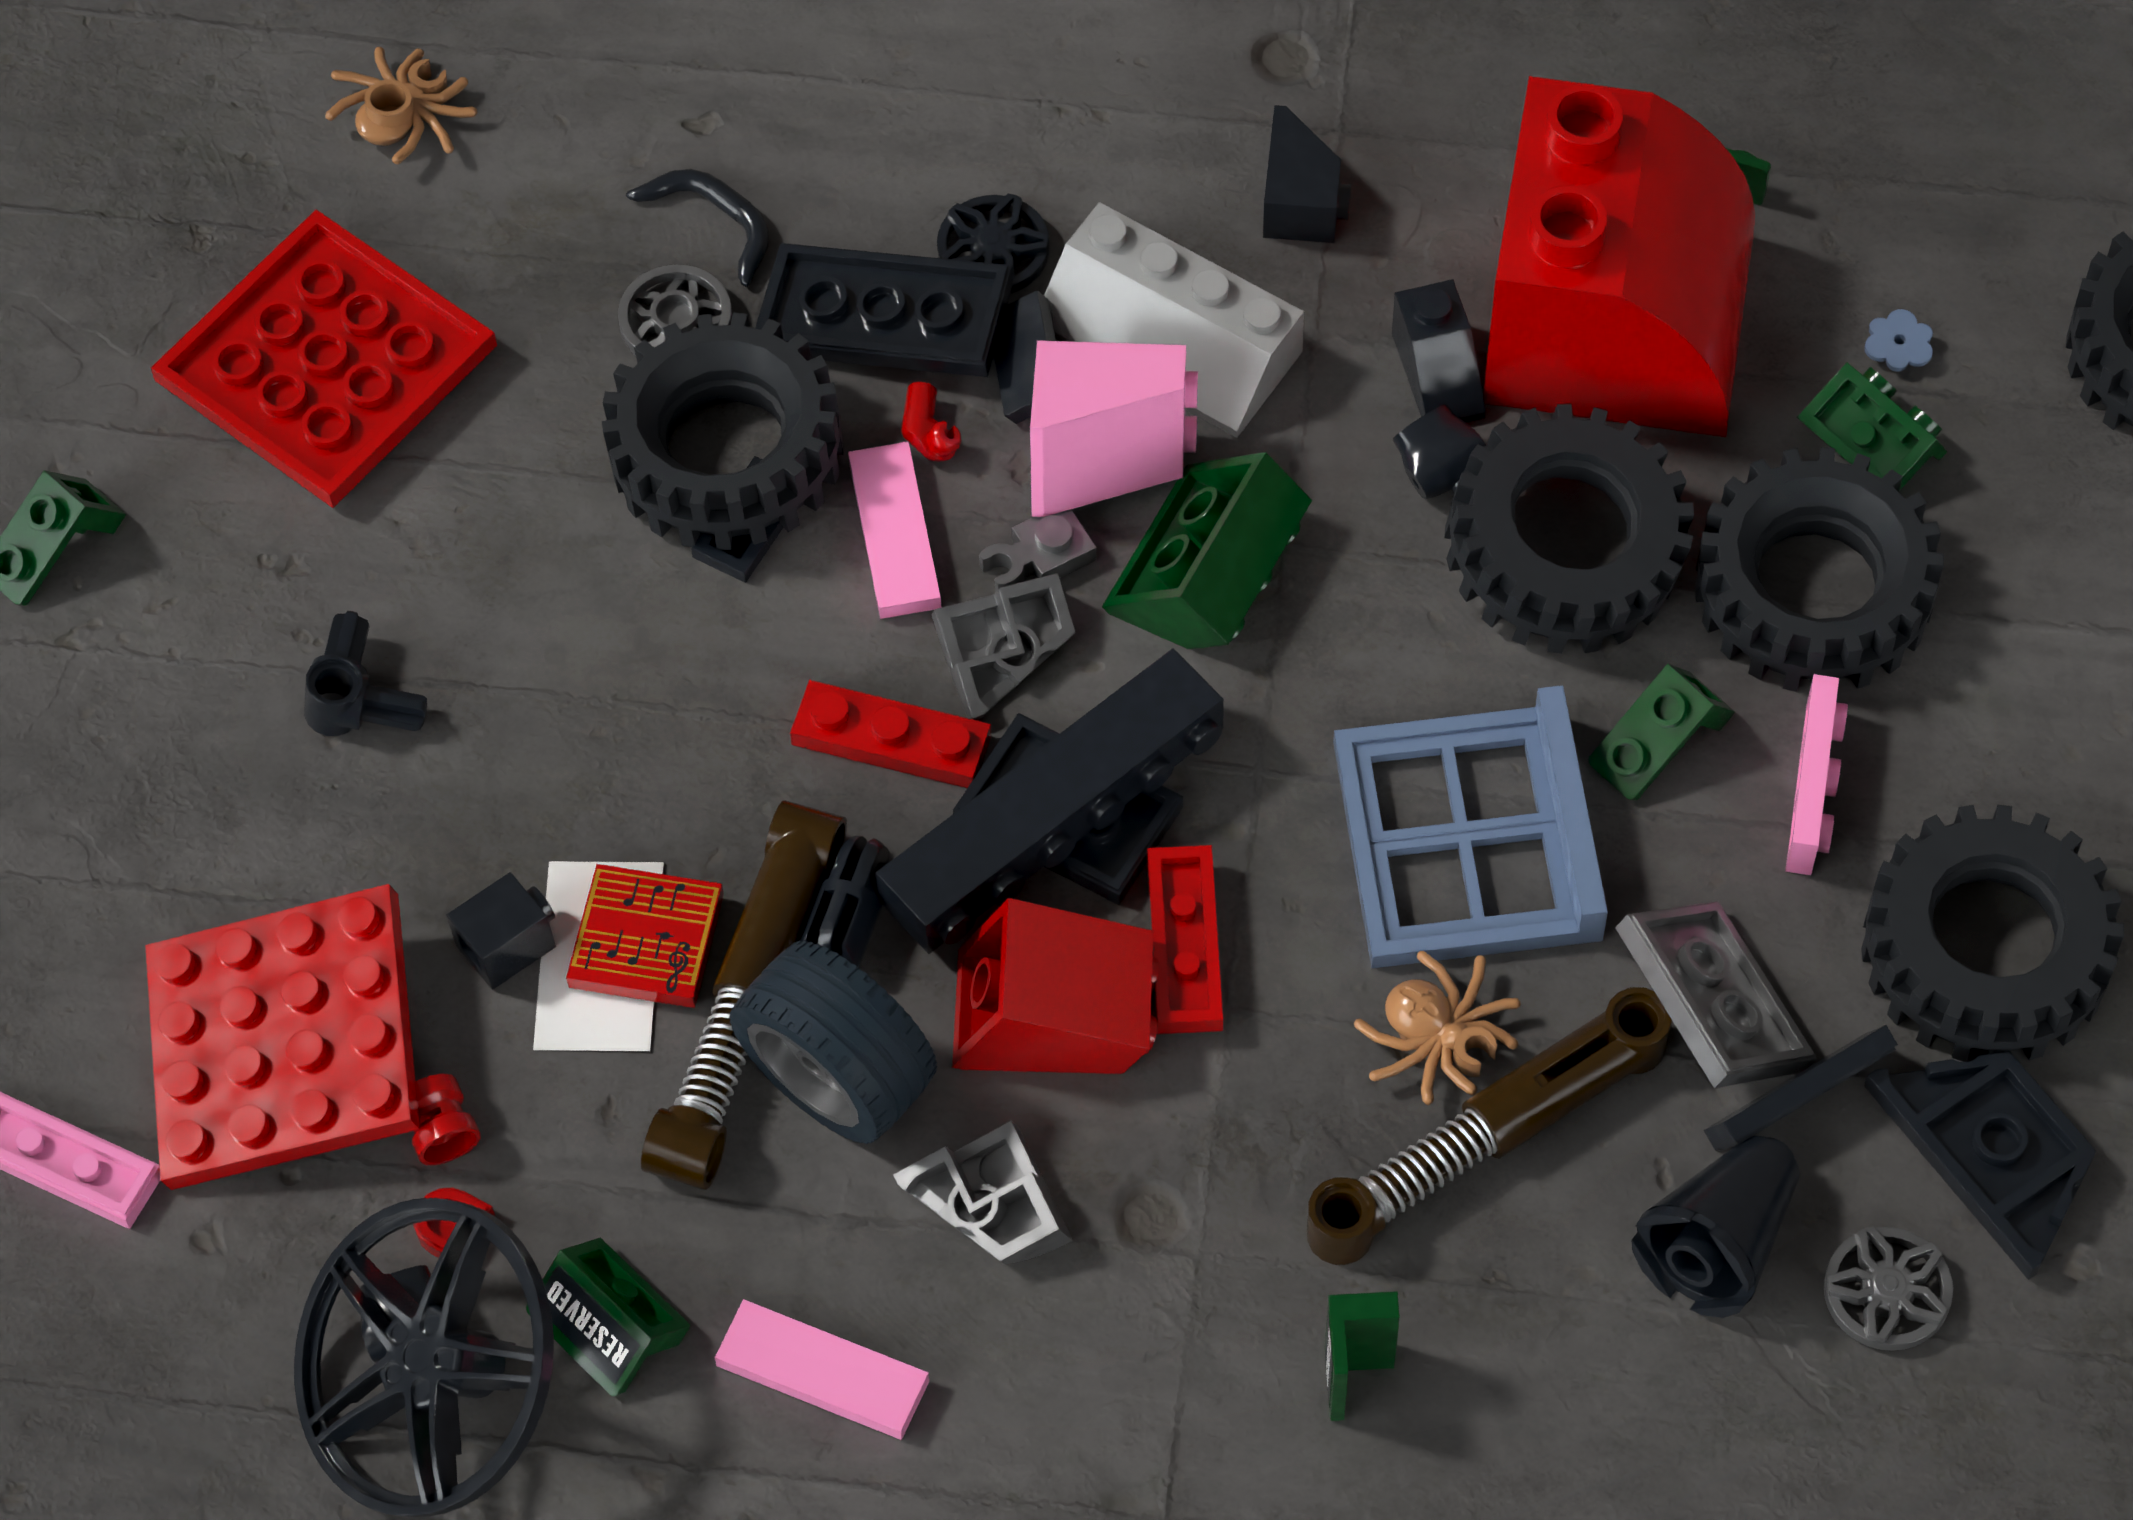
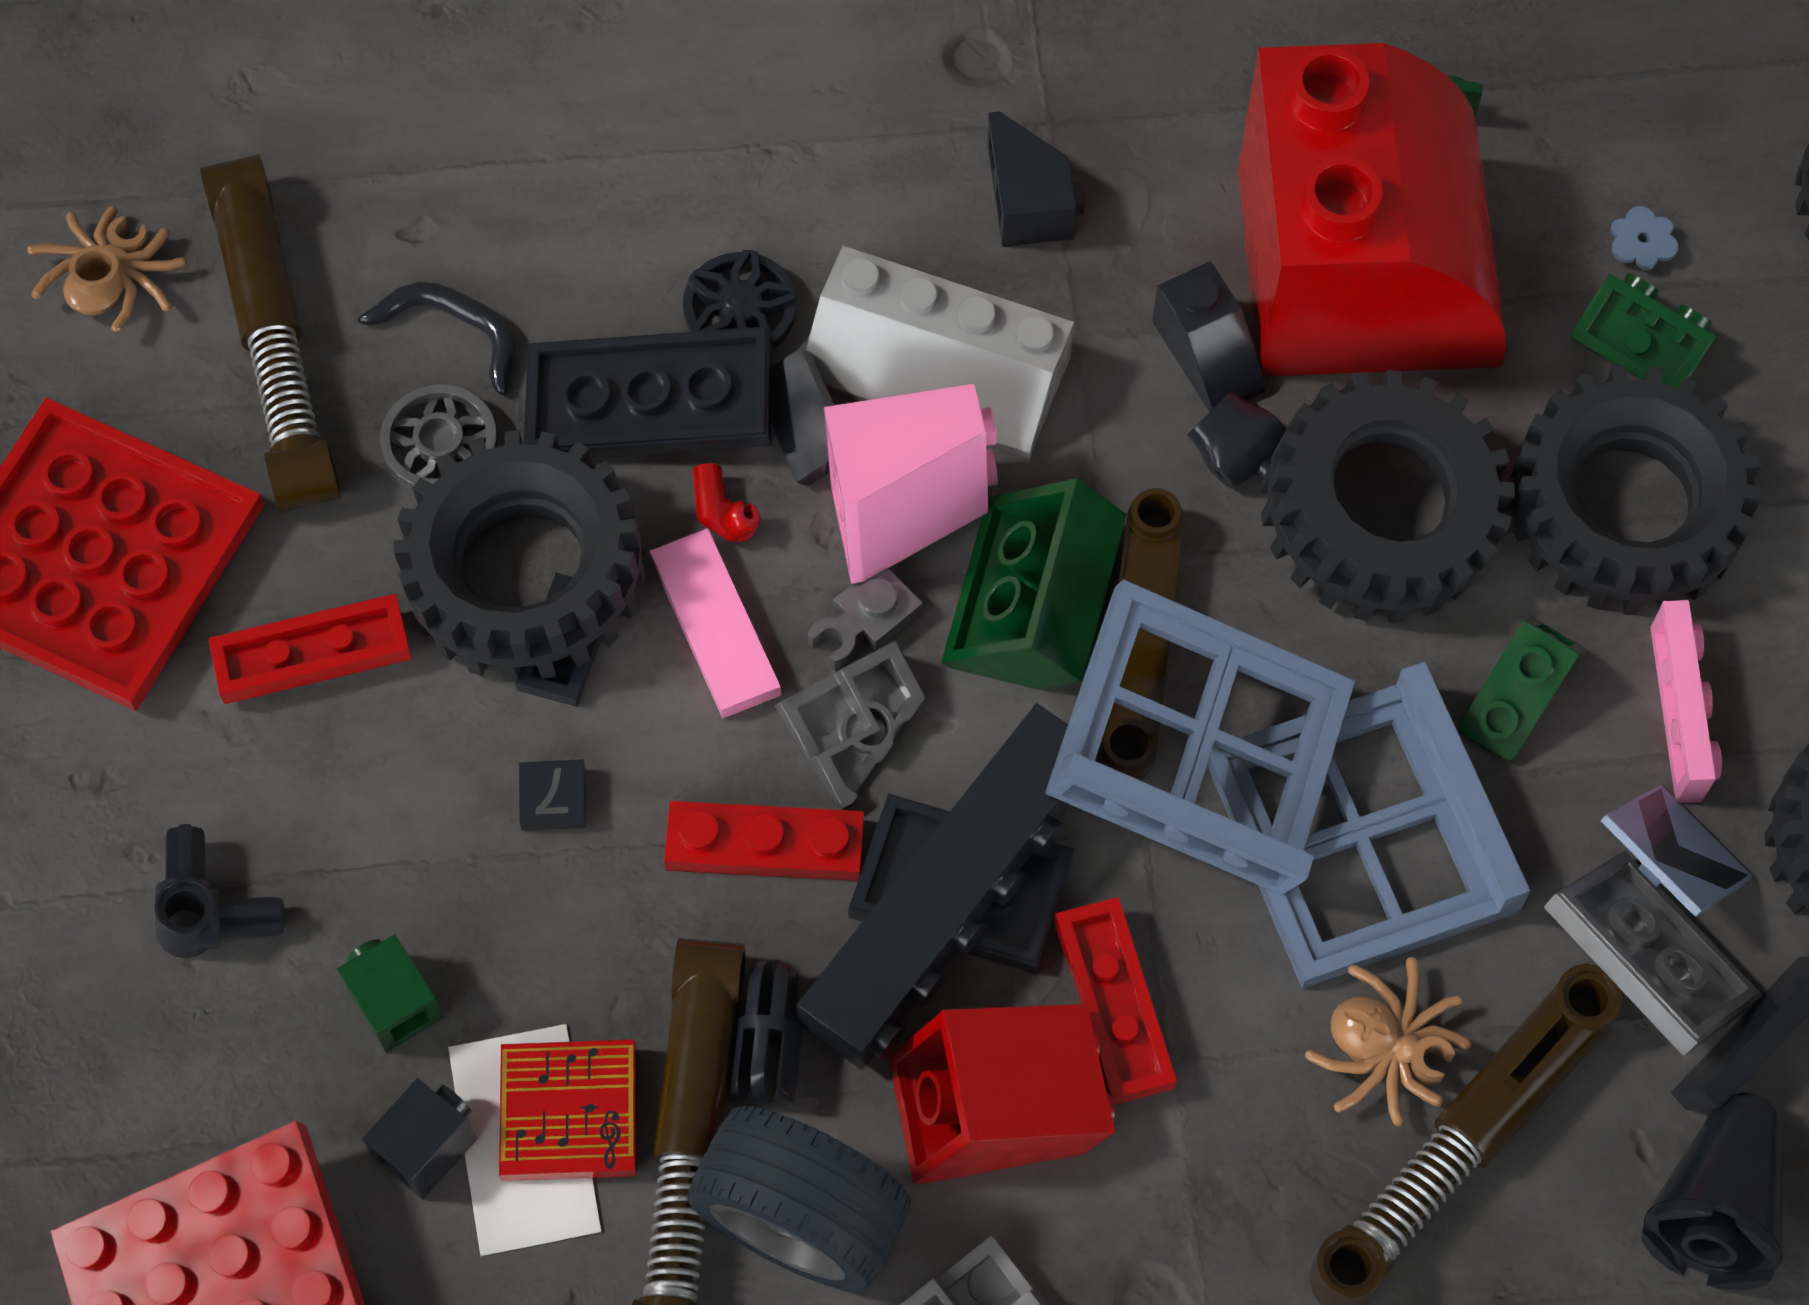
camera: 15 degrees left, 5 degrees up
(505, 798) = (389, 991): none -> dark green brick
(507, 480) = (309, 649): none -> red plate
(539, 185) = (269, 325): none -> dark brown piece
(701, 655) = (552, 795): none -> black tile
(1280, 777) = (1174, 818): none -> sand blue window
(1298, 616) = (1152, 563): none -> dark brown piece
(1765, 906) = (1676, 850): none -> sand blue piece

